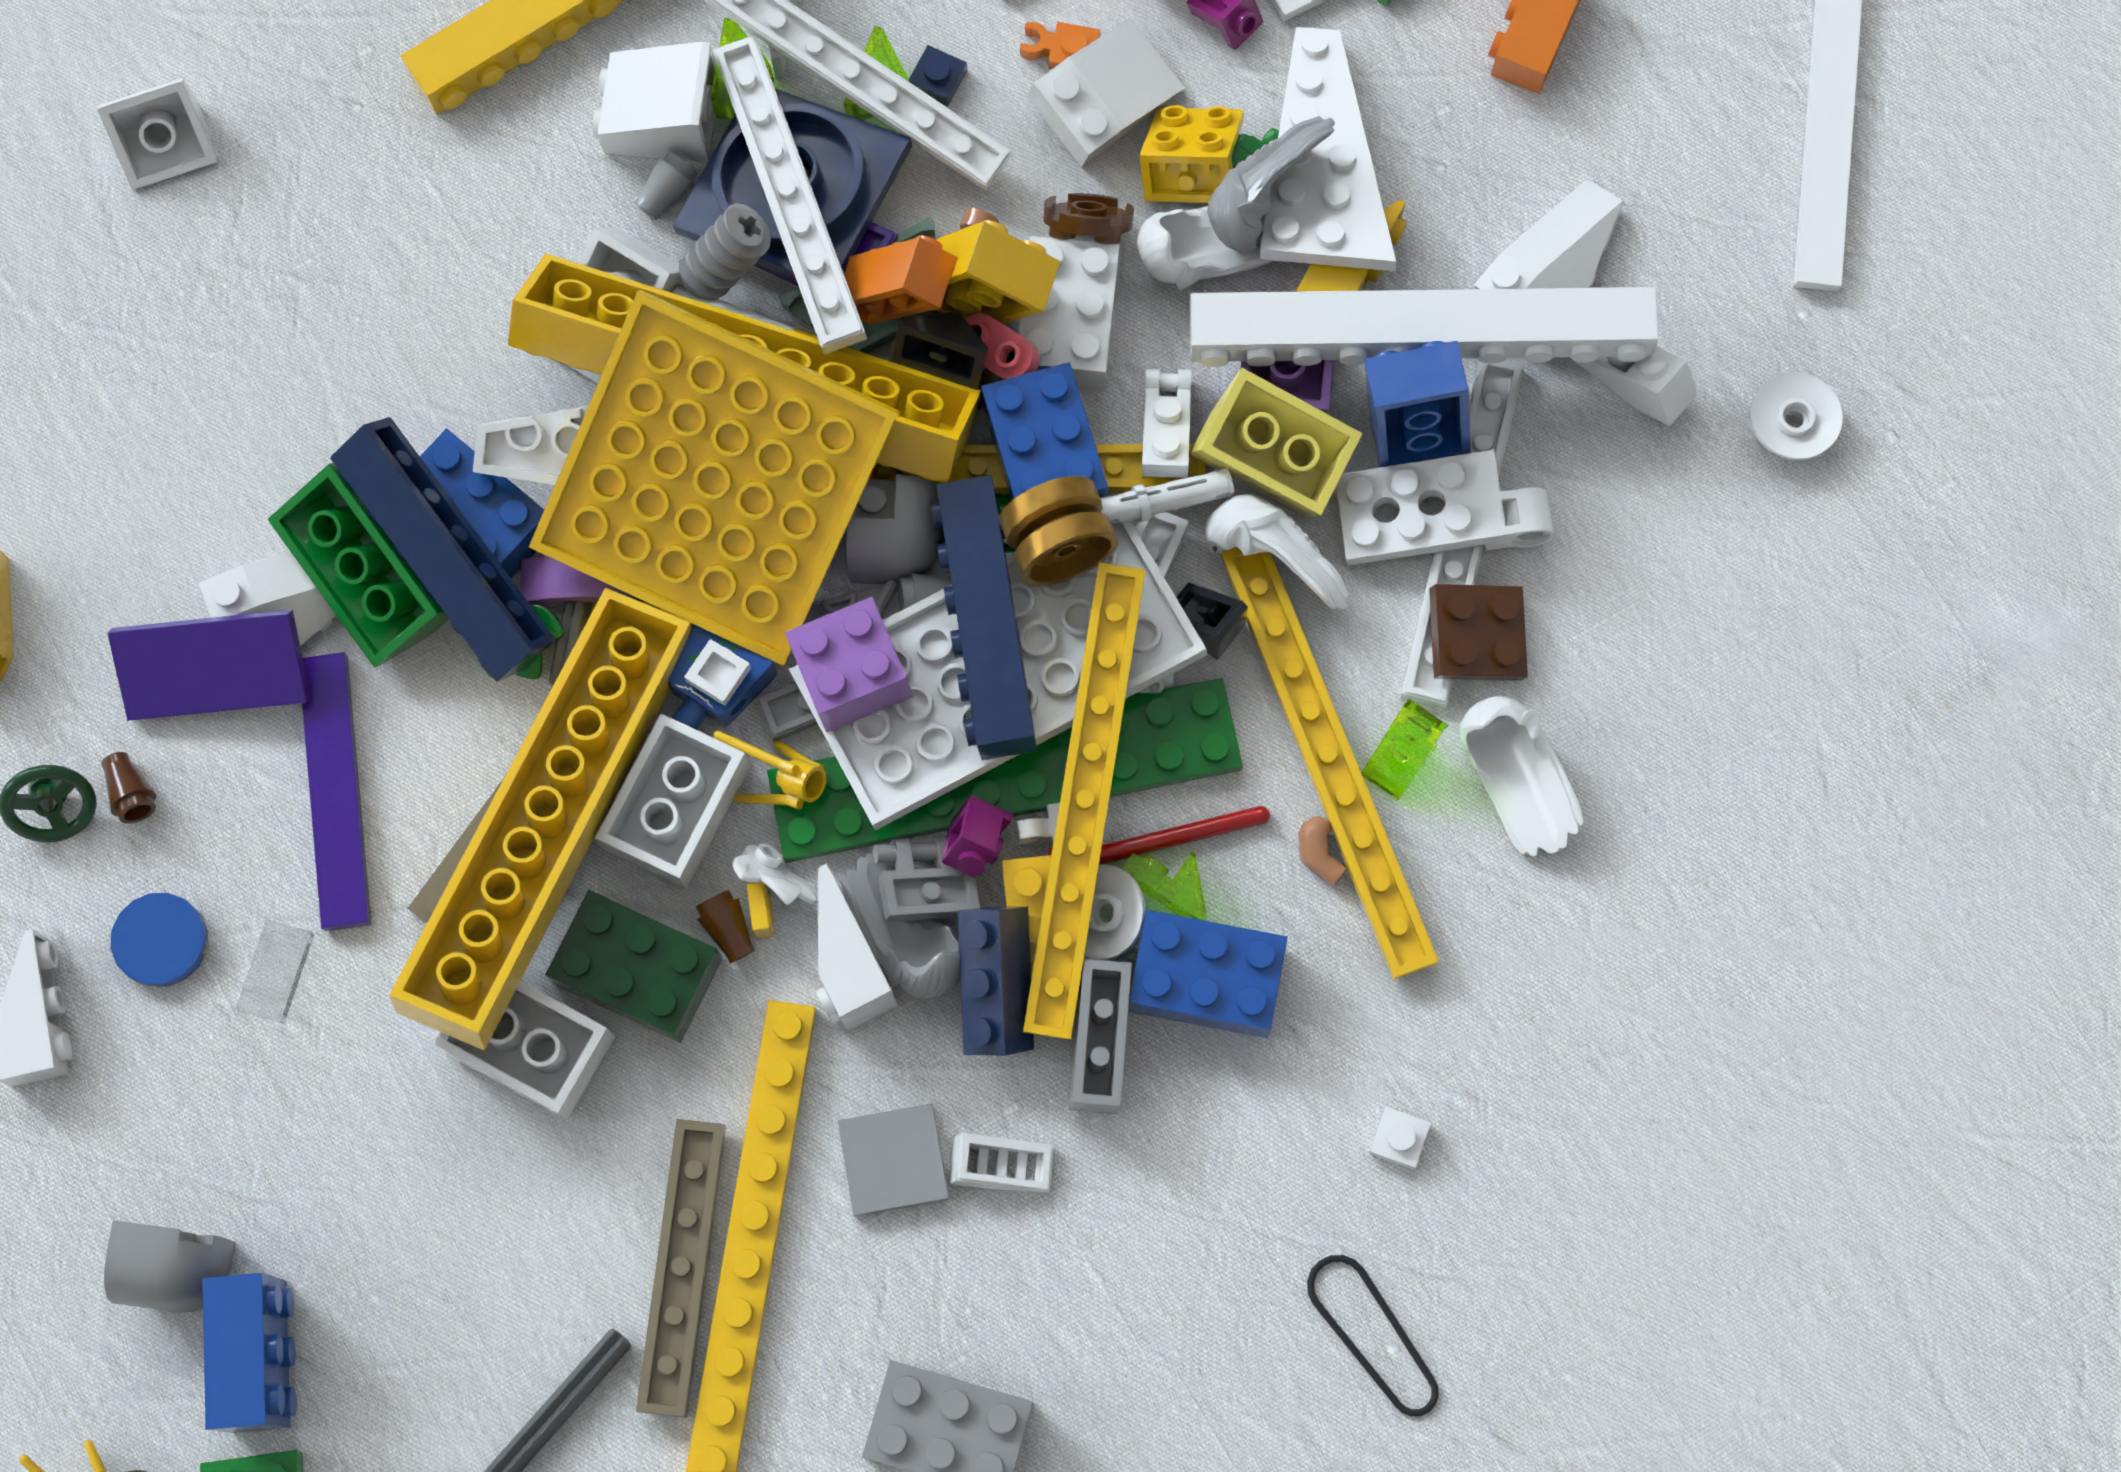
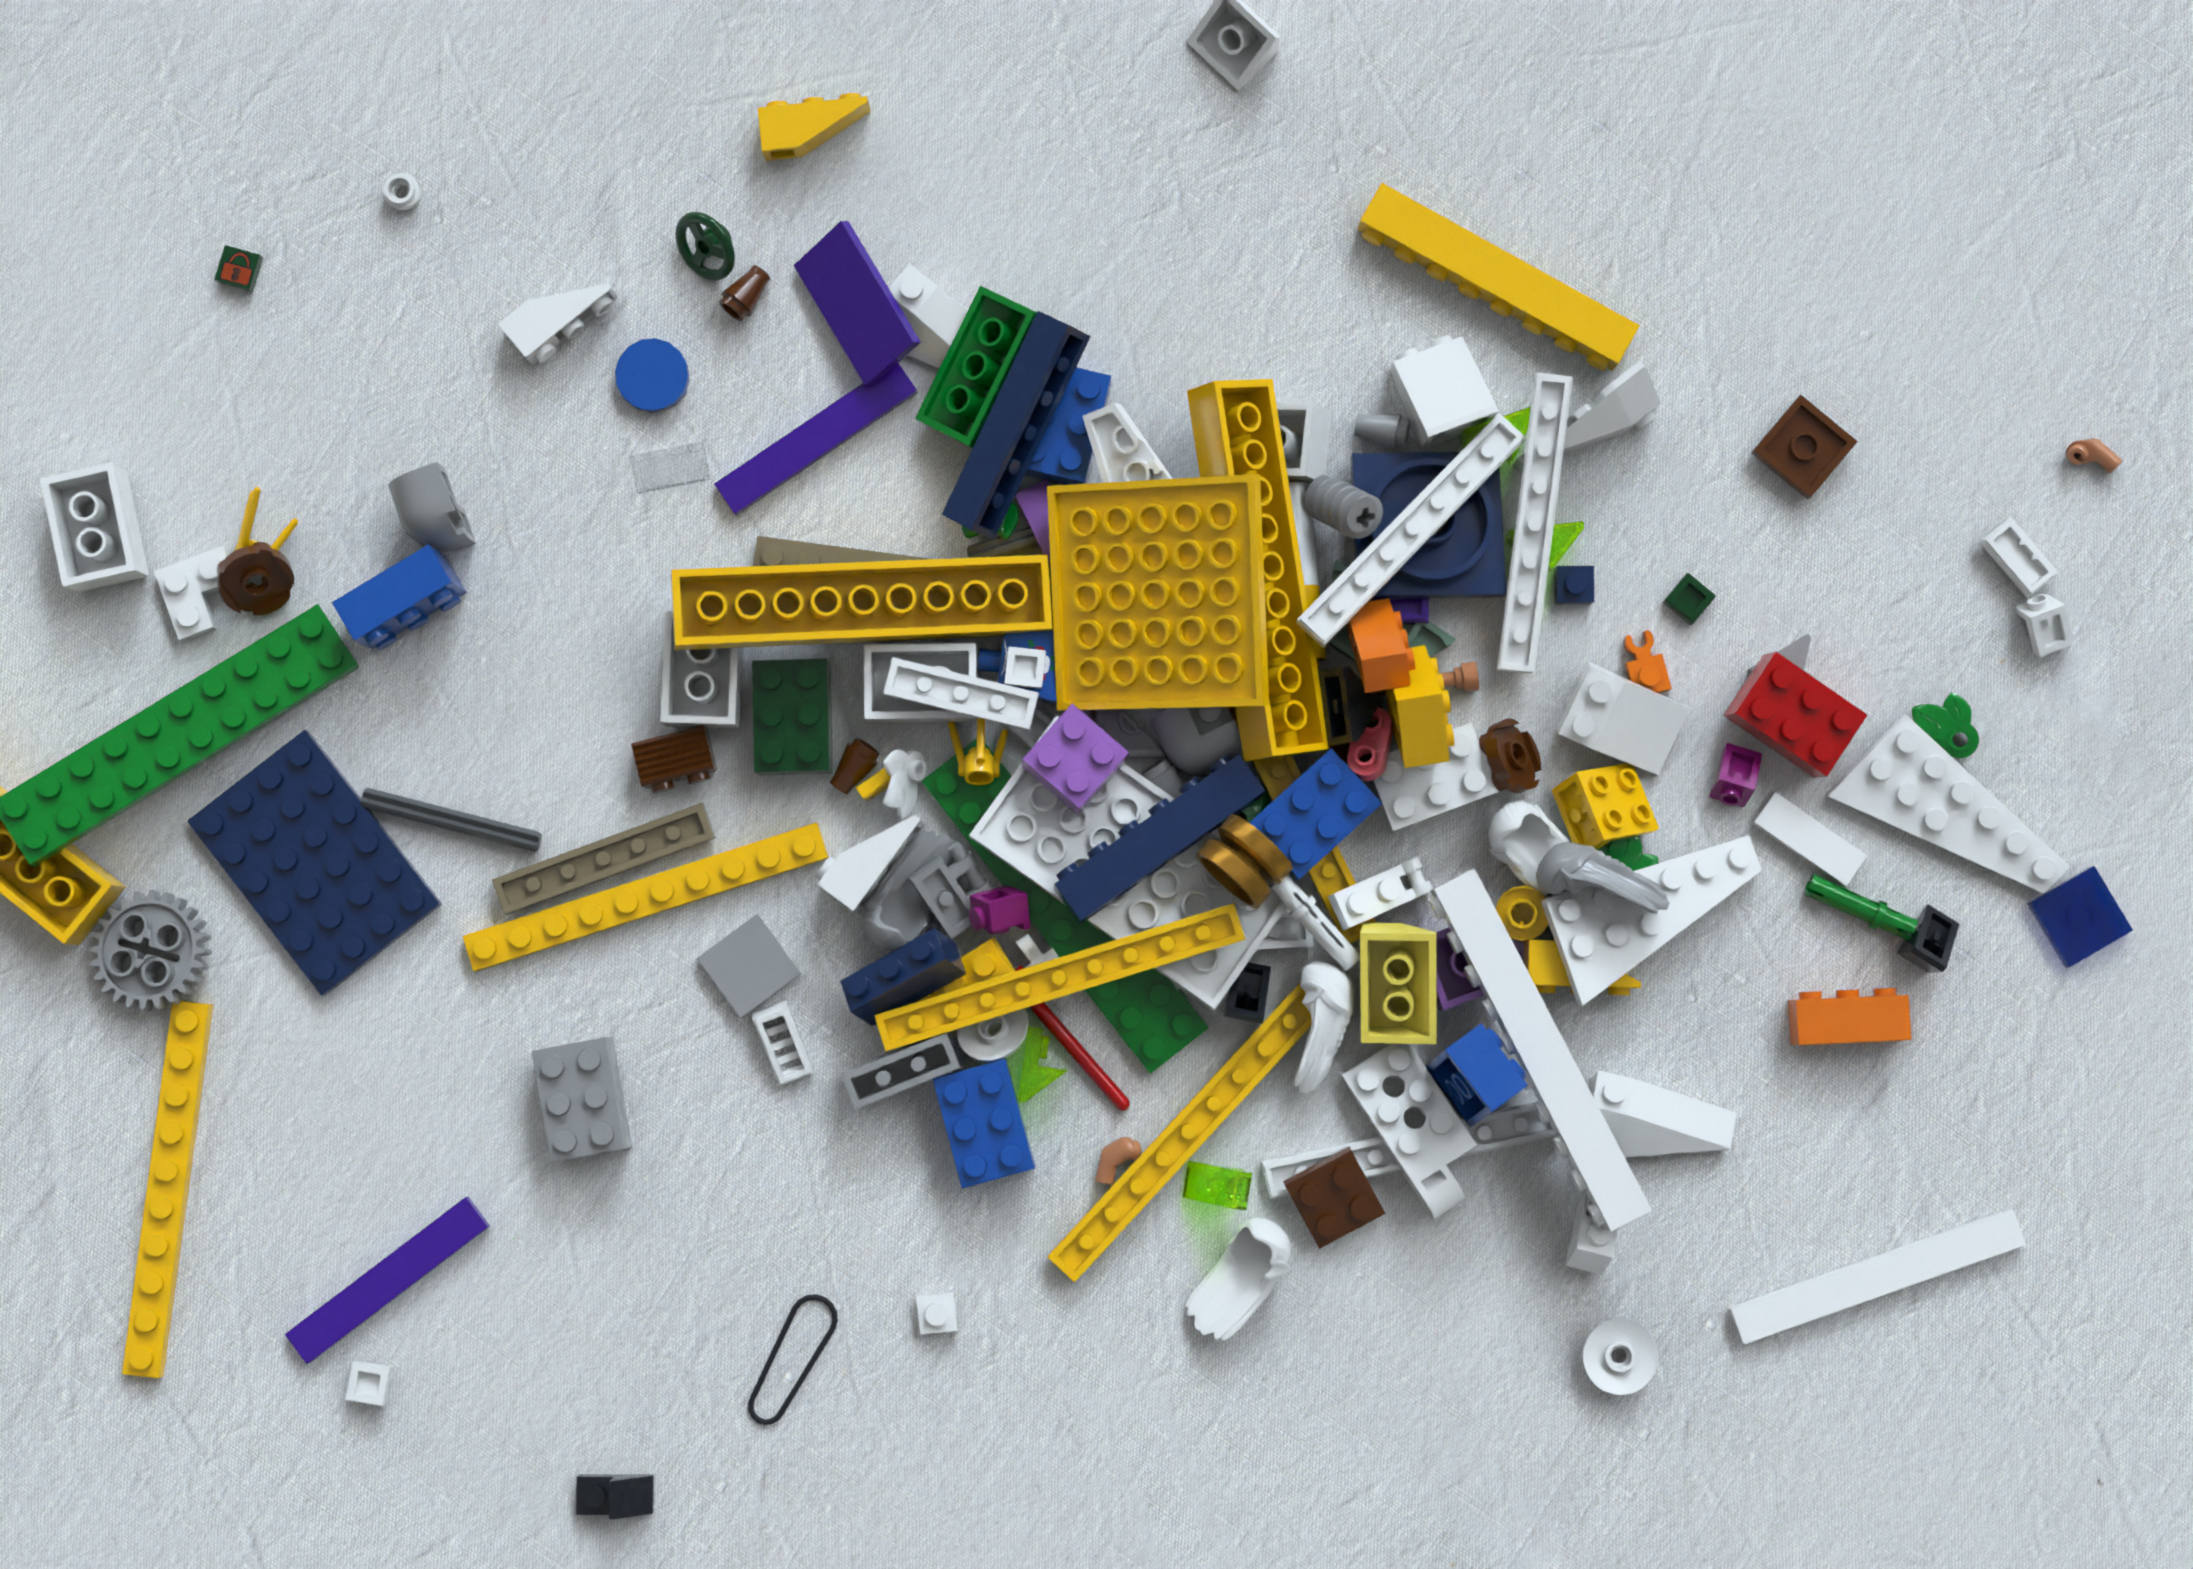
camera: 65 degrees right, 10 degrees up
(609, 1125) = (674, 758): none -> reddish brown brick
(708, 752) = (961, 693): none -> white plate
(1263, 276) = (1522, 912): none -> yellow plate

